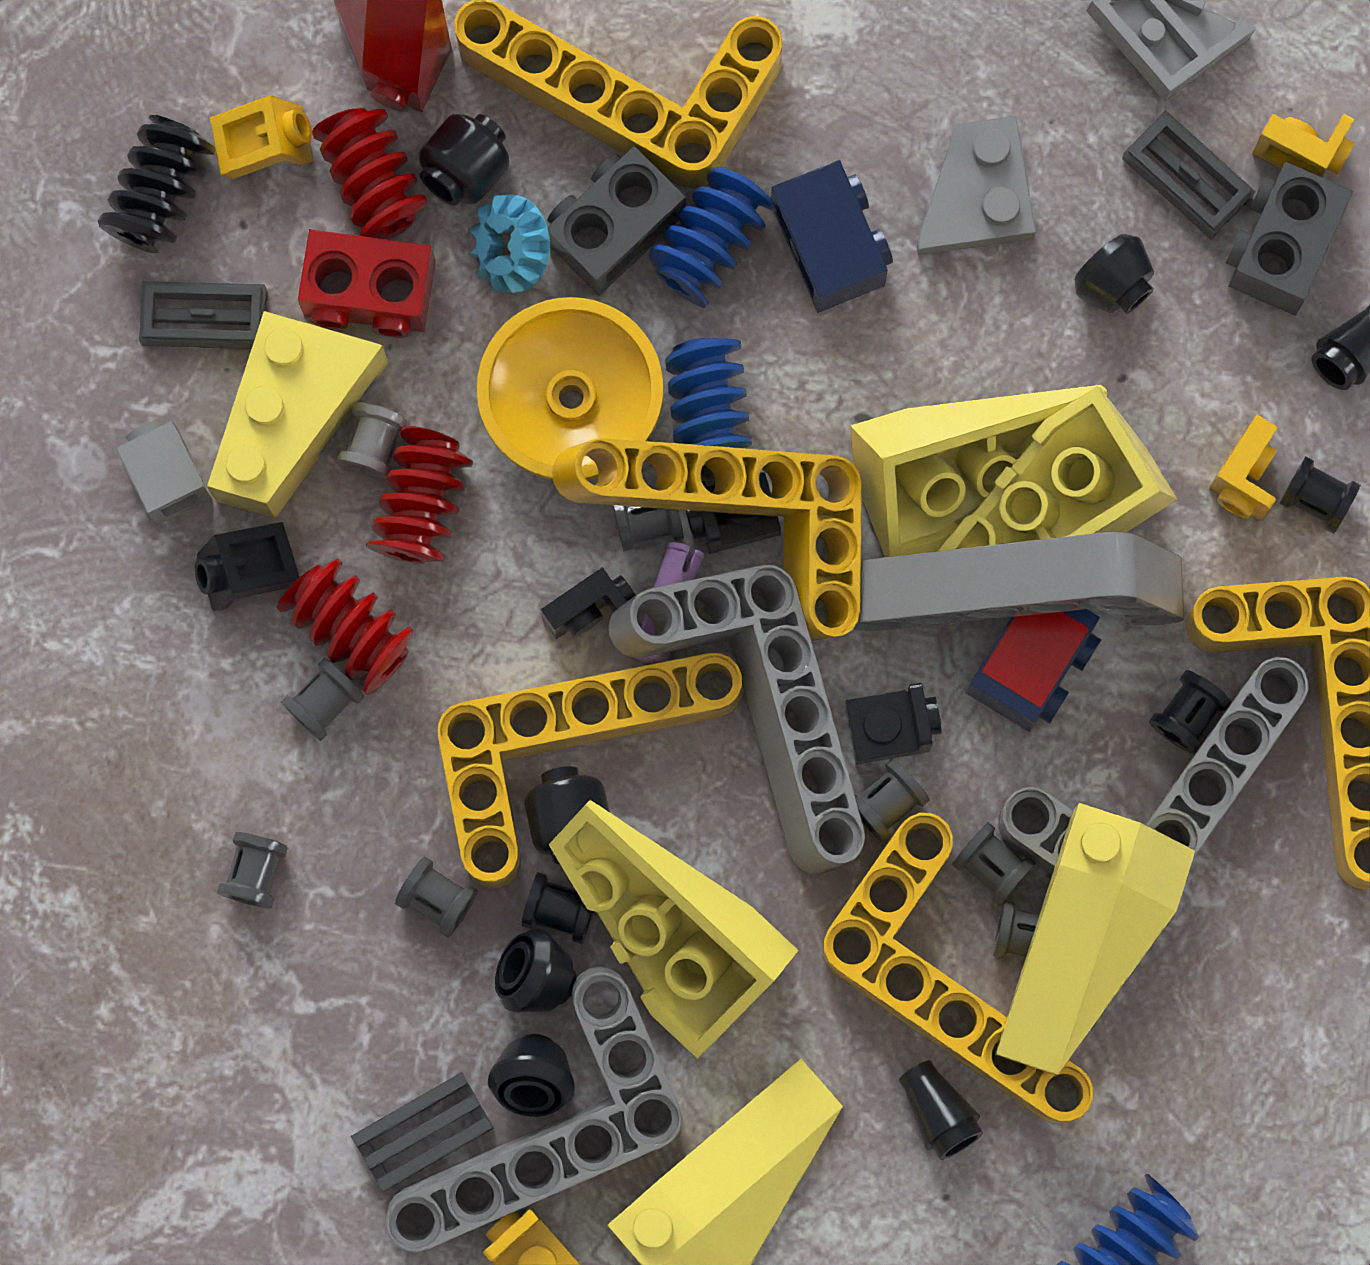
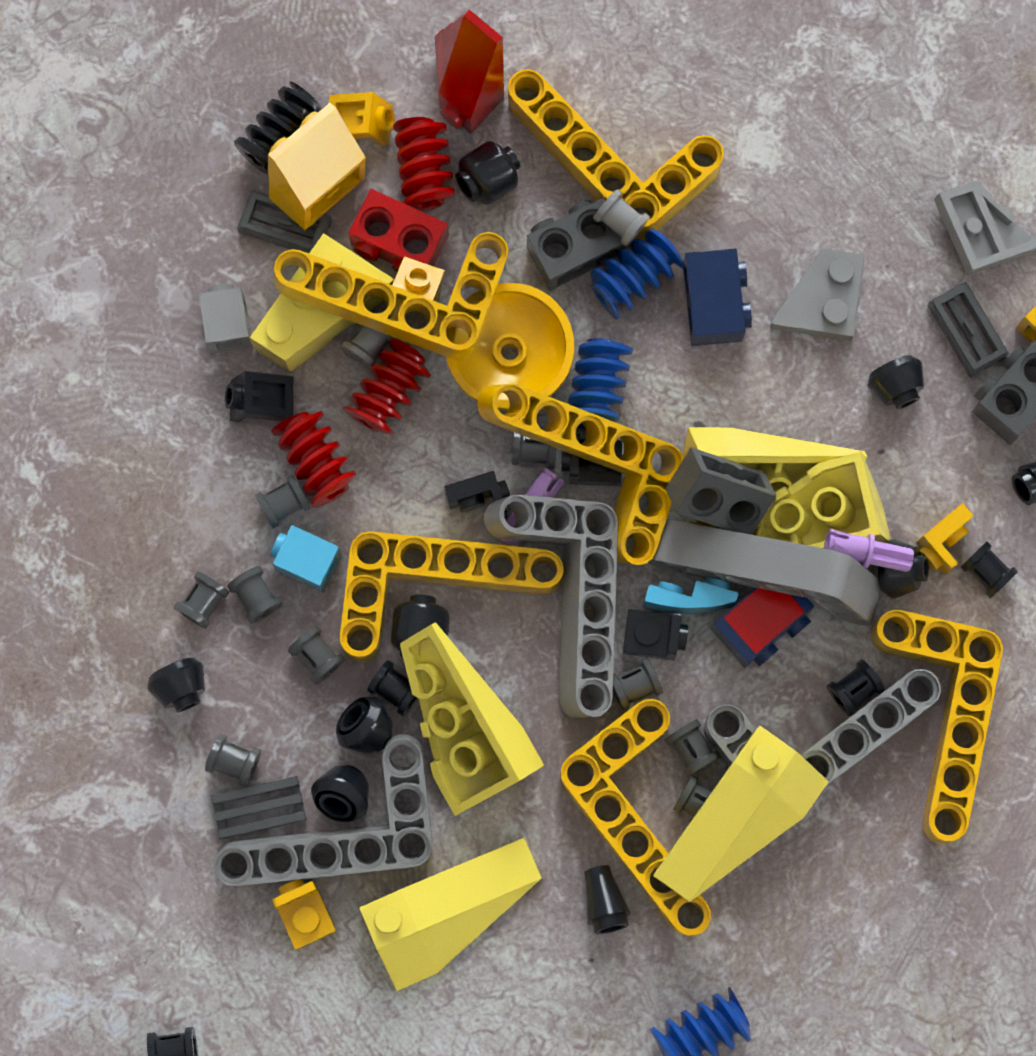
camera: 15 degrees right, 0 degrees up
(222, 223) = (314, 167): none -> yellow slope
(258, 996) = (178, 684): none -> black cone
(324, 840) = (254, 594): none -> dark grey bush
(366, 1077) = (232, 760): none -> dark grey bush
(378, 767) = (305, 557): none -> medium azure brick
(398, 372) = (400, 301): none -> yellow beam
(416, 342) = (420, 279): none -> yellow bracket
(527, 245) = (515, 233): medium azure gear -> none
(669, 165) = (621, 217): none -> light grey bush
(923, 501) = (720, 492): none -> dark grey brick
(945, 653) = (705, 598): none -> medium azure slope
(1153, 518) = (869, 551): none -> lavender axle
(1201, 529) = (899, 583): none -> black cone

